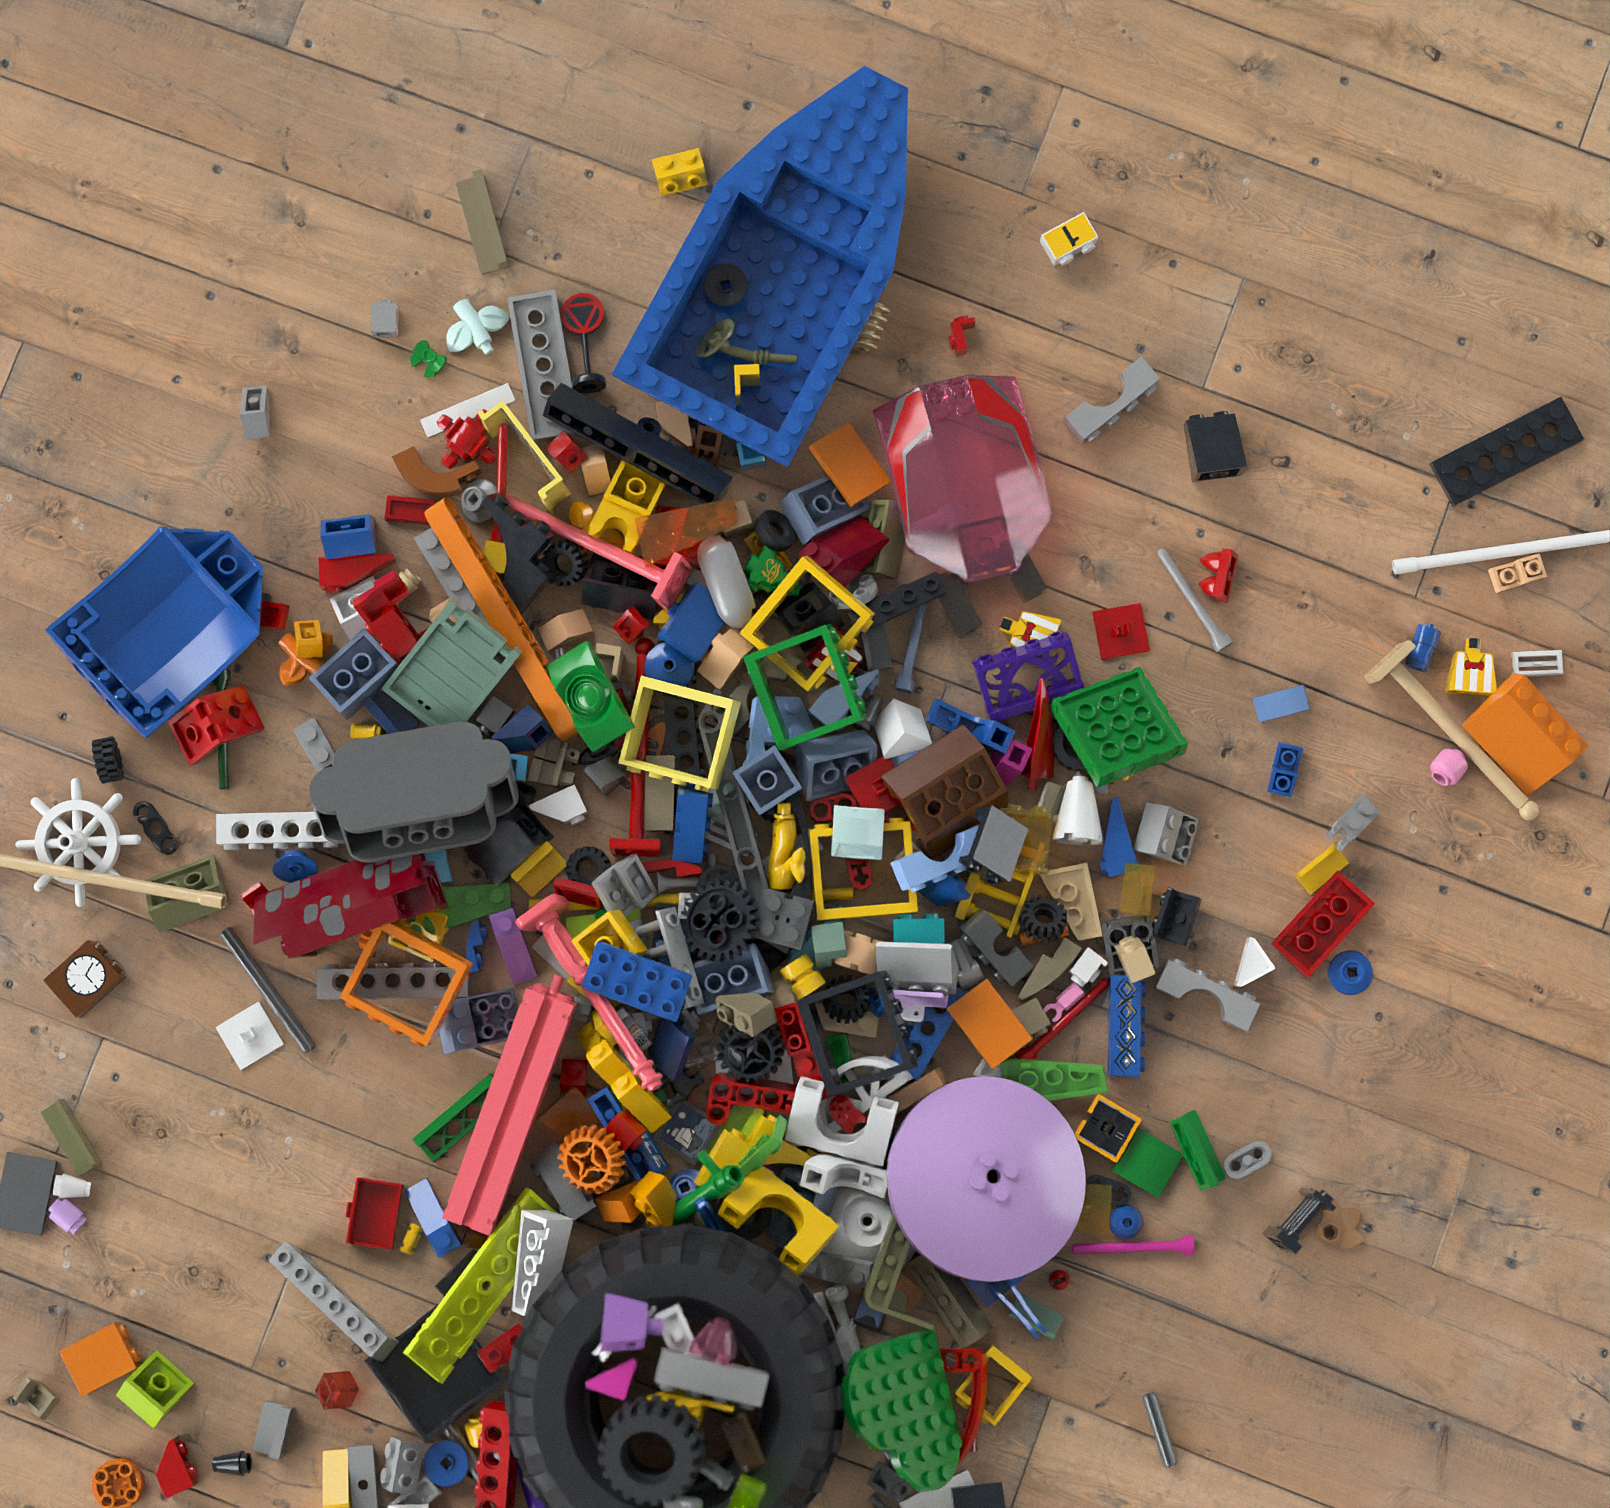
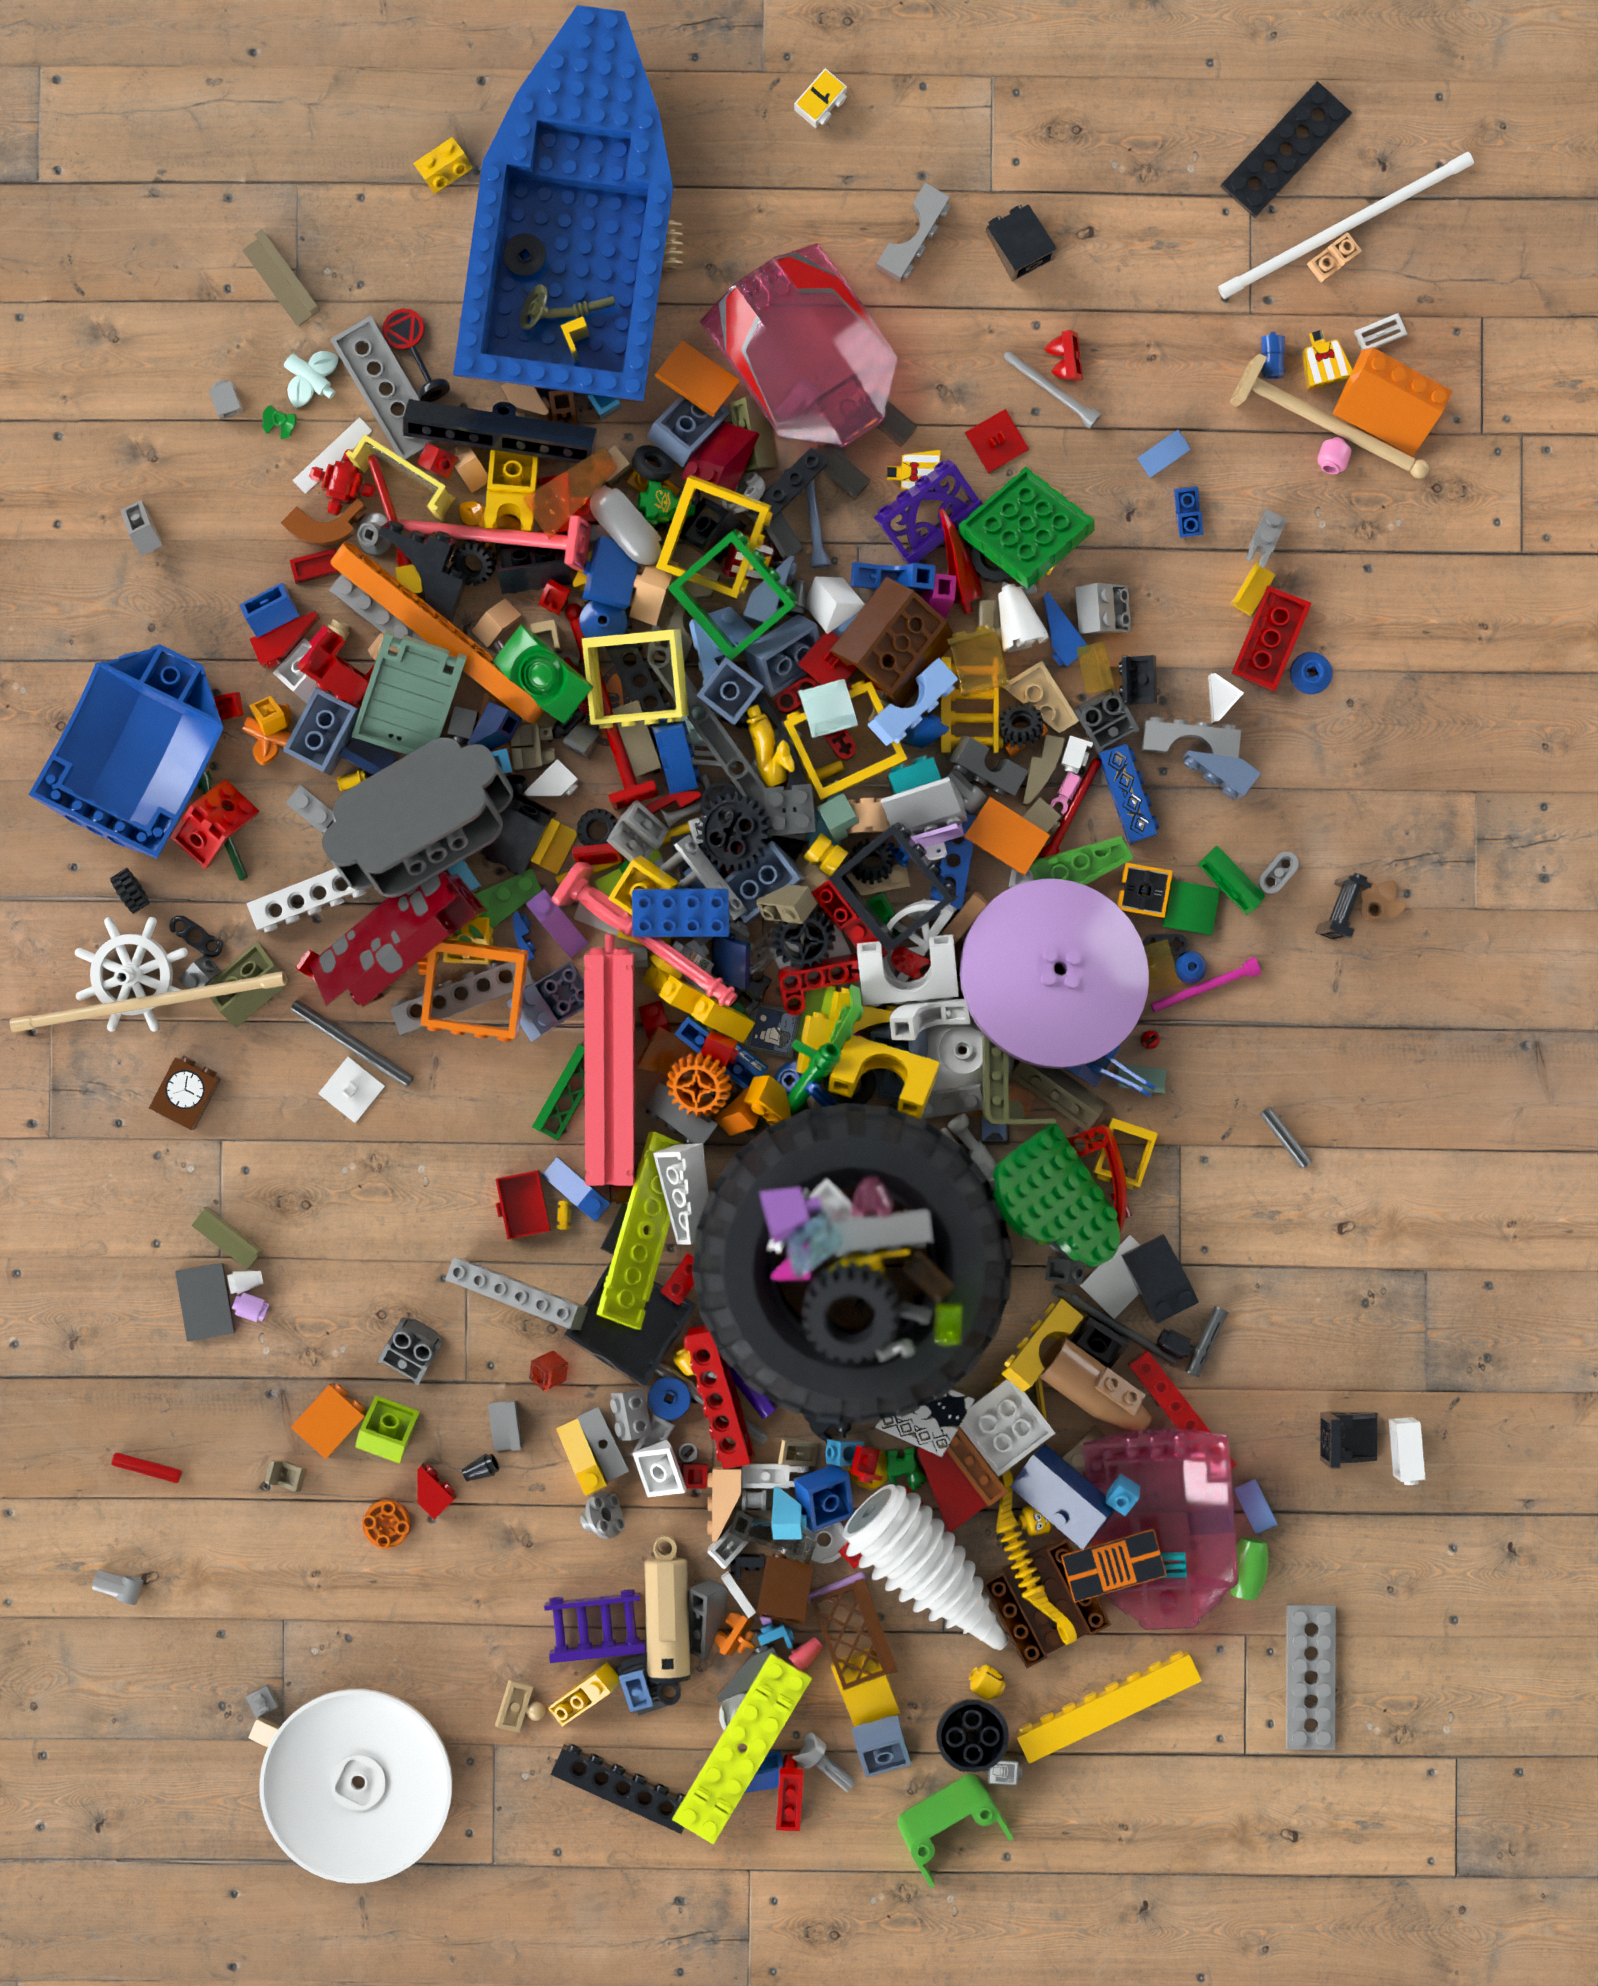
camera: 20 degrees left, 5 degrees up
(145, 865) = (199, 973): none -> dark grey bracket
(209, 1317) = (411, 1349): none -> dark grey slope
(294, 866) = (334, 924): blue piece -> none
(647, 1371) = (822, 1244): none -> clear light blue piece
(957, 339) = (752, 227): red bracket -> none
(995, 846) = (955, 675): panel -> none
(1134, 959) = (1115, 730): tan brick -> none
(1234, 1043) = (1228, 772): none -> sand blue slope

